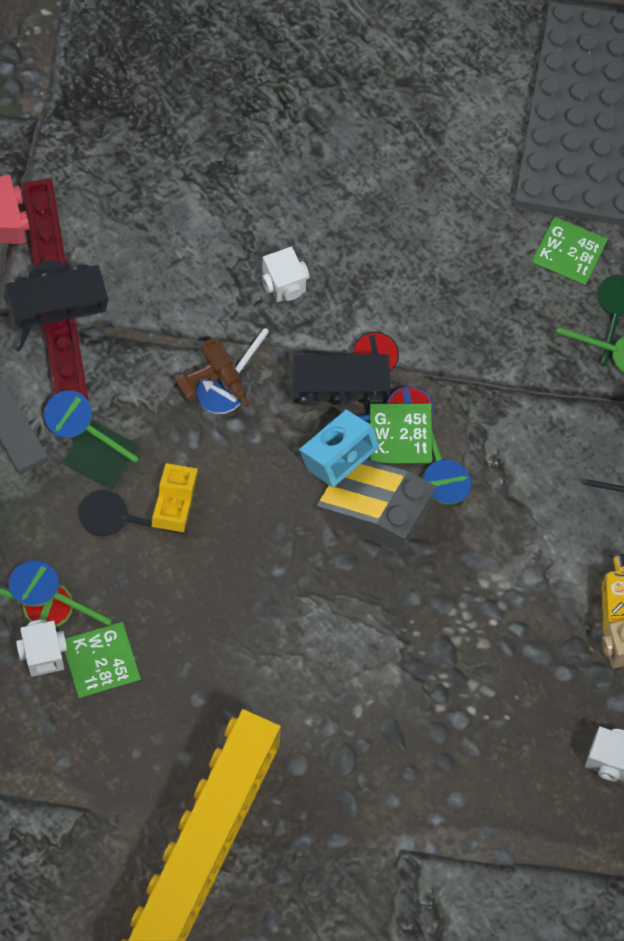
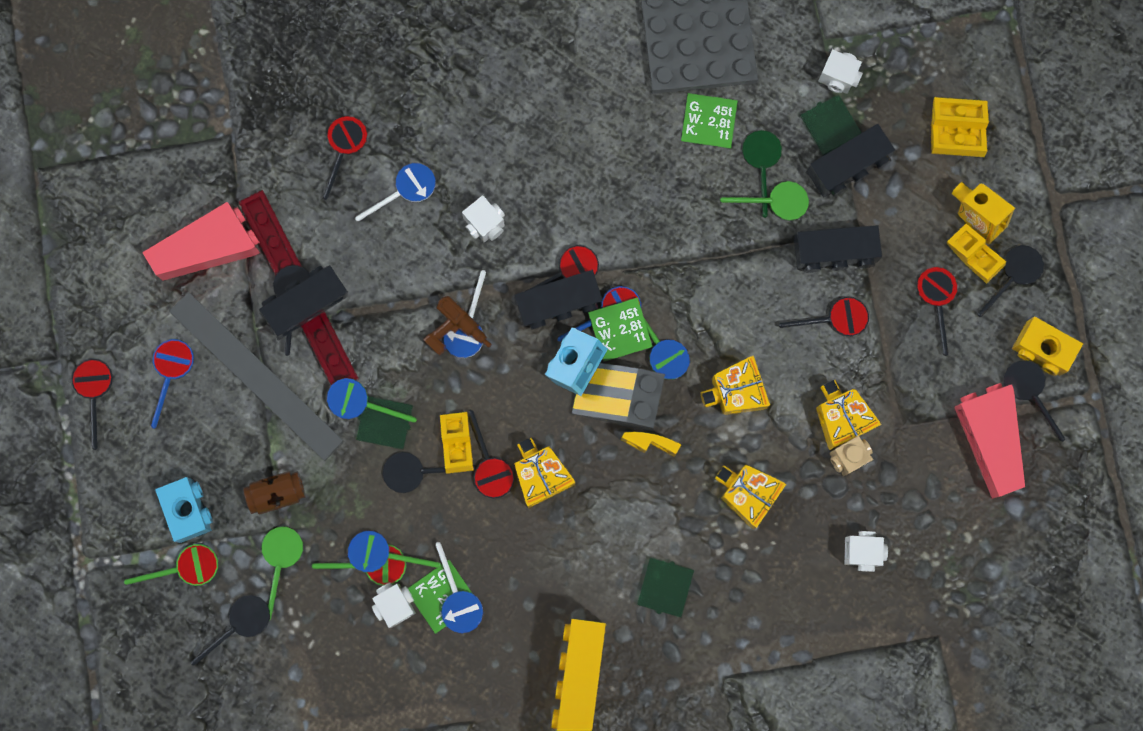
camera: 15 degrees left, 15 degrees up
(118, 679) = (462, 609): none -> blue piece
(160, 154) = (347, 137): none -> piece
(204, 546) = (493, 475): none -> piece
(217, 219) = (413, 182): none -> blue piece
(260, 557) = (540, 473): none -> yellow torso
(364, 727) = (665, 587): none -> clear green piece
(390, 555) = (642, 441): none -> yellow slope
(496, 649) = (749, 493): none -> yellow torso
(515, 533) = (737, 389): none -> yellow torso

